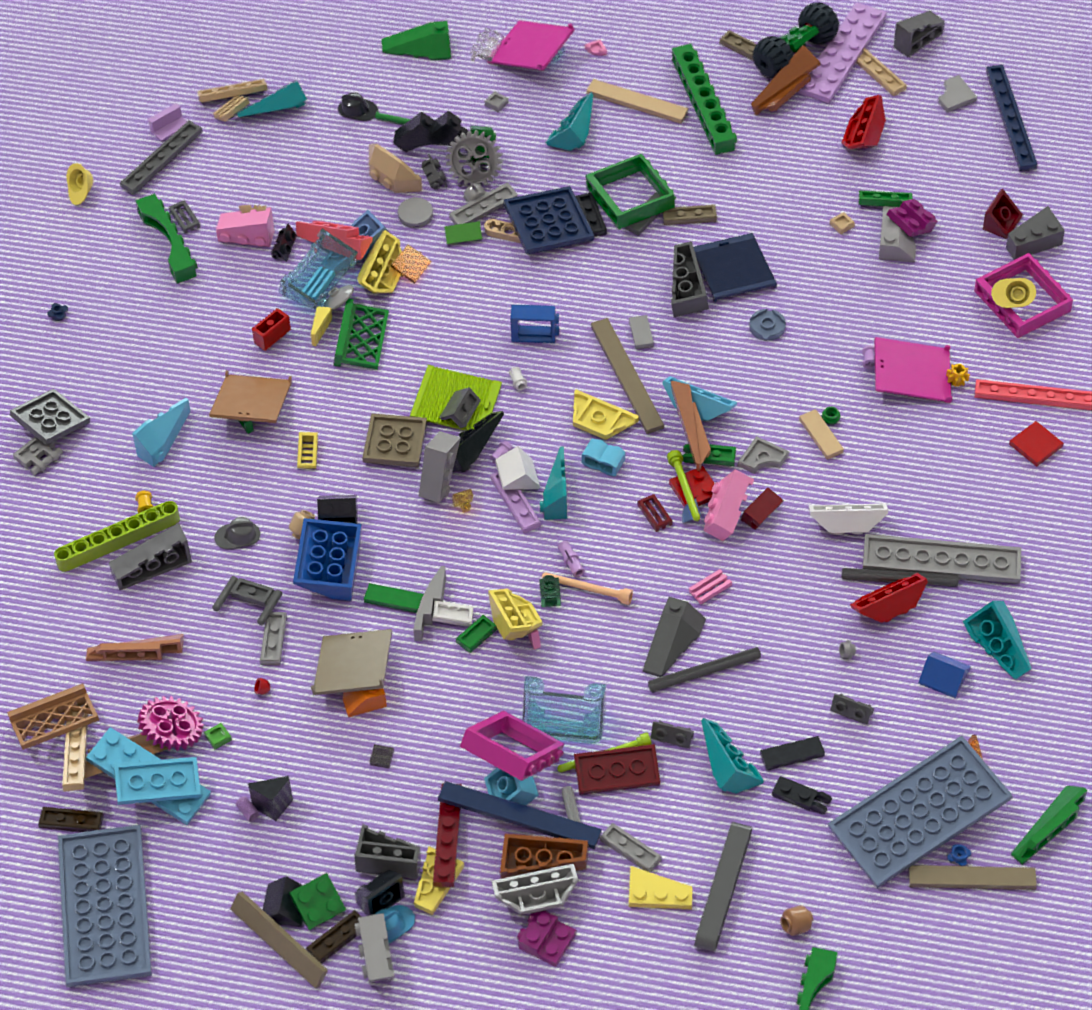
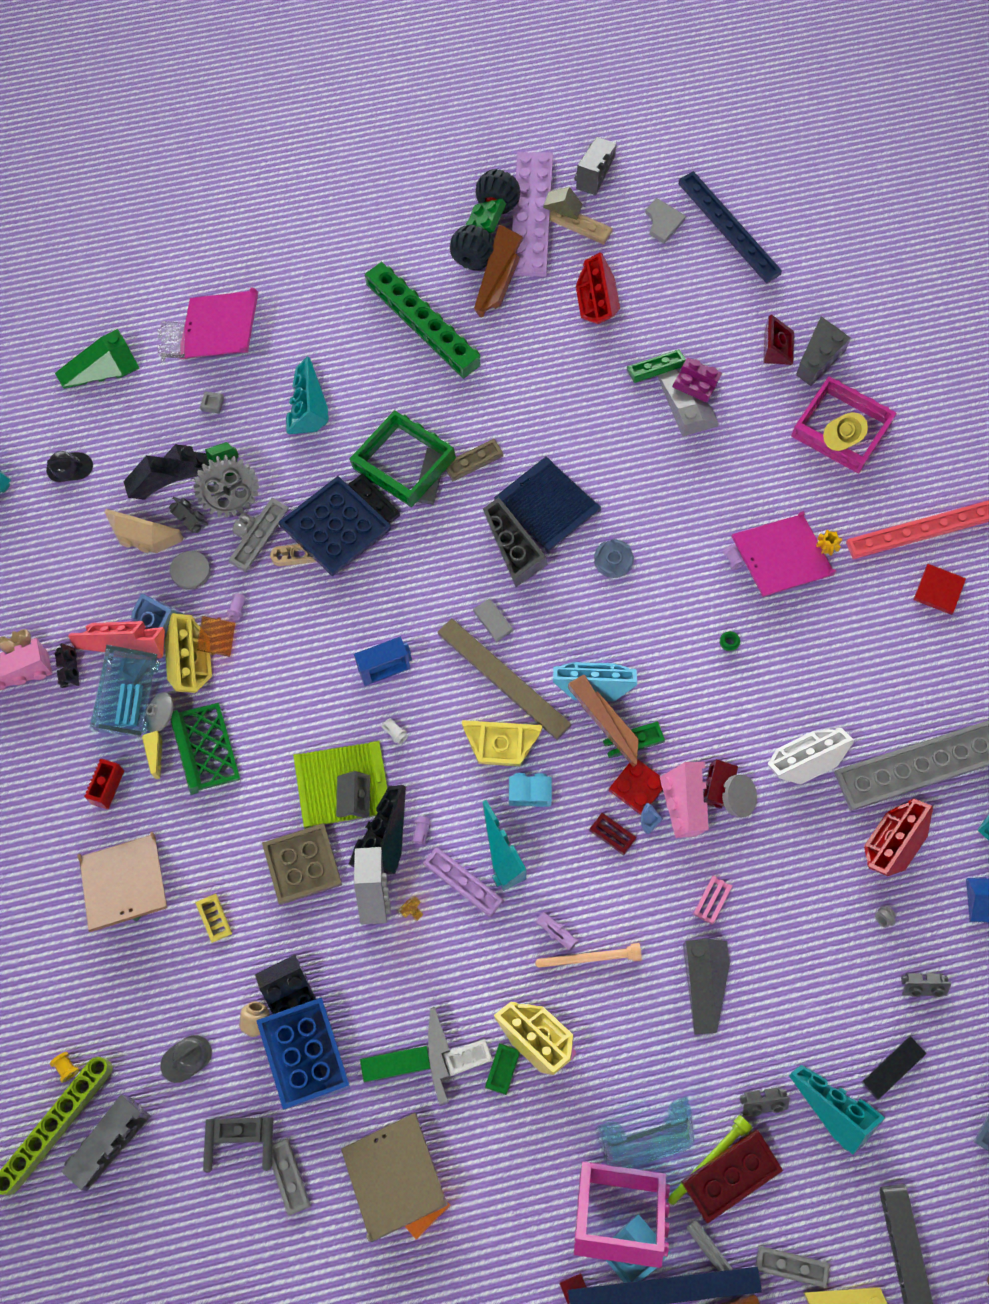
camera: 25 degrees left, 15 degrees up
(136, 650) = (143, 1261): nougat wedge -> none
(156, 437) = (40, 982): medium azure wedge -> none
(262, 686) = (305, 1248): red hinge -> none
(381, 756) = (477, 1275): clear smoke tile -> none
(391, 118) = (116, 464): green bar -> none
(436, 251) = (235, 610): none -> lavender pin
(463, 232) = (253, 576): bright green tile -> none
(517, 470) = (450, 848): white slope -> none
(549, 588) = (557, 990): clear green brick -> none
(596, 48) = (284, 300): bright pink tile -> none
(637, 101) = (356, 346): tan tile -> none
(675, 460) = (605, 763): lime piece -> none
(704, 669) = (756, 1006): dark grey axle -> none
(738, 44) = (428, 242): dark tan tile -> none
(761, 455) = (684, 716): light grey tile -> none
(773, 520) = (740, 796): none -> light grey tile
(801, 795) = (926, 1116): black hinge -> none
(821, 434) = (730, 666): tan tile -> none
(842, 223) = (627, 409): tan tile -> none
(873, 51) = (563, 202): none -> olive slope
(891, 576) = (889, 804): dark grey axle -> none

